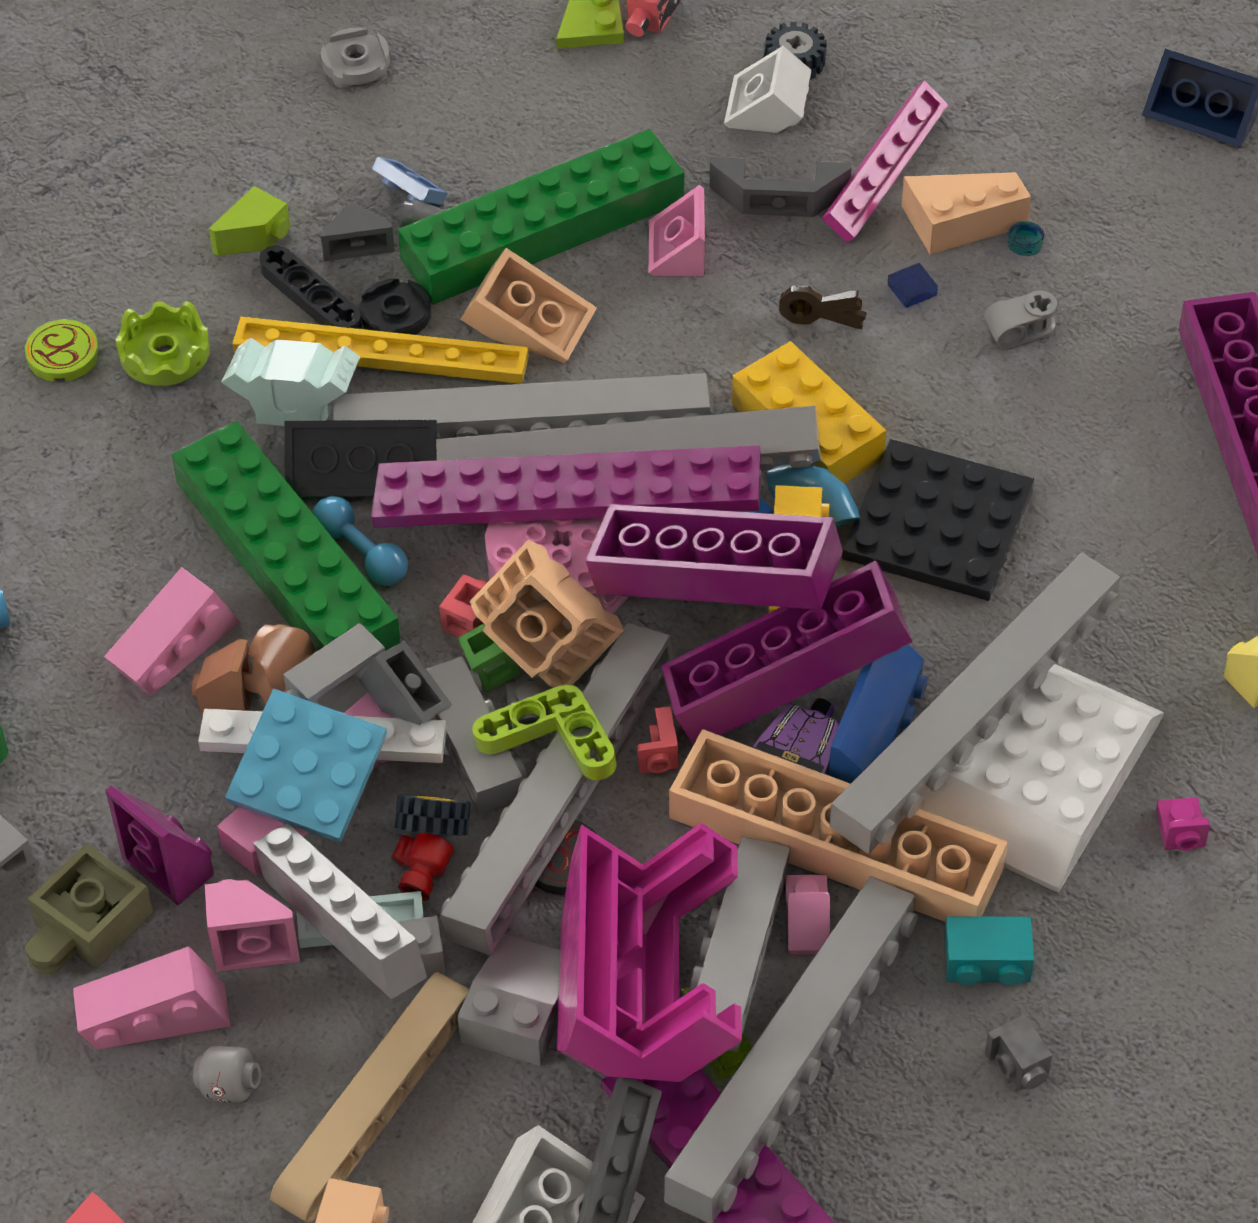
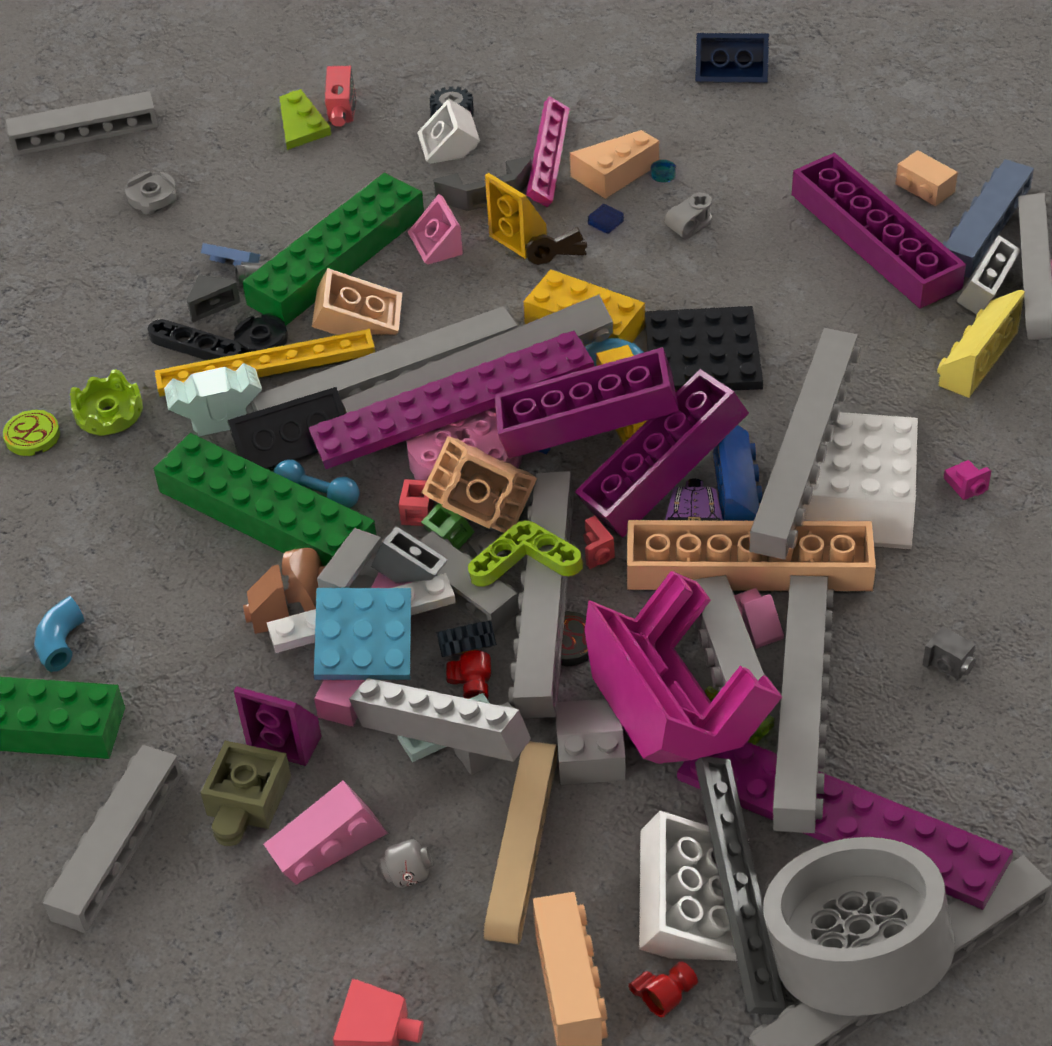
camera: 20 degrees left, 5 degrees down
(171, 632) = (211, 584): bright pink wedge -> none
(248, 927) = (374, 756): bright pink slope -> none
(250, 224) = (131, 312): lime slope -> none
(778, 249) = (511, 216): none -> yellow slope
(988, 949) = (890, 596): teal brick -> none

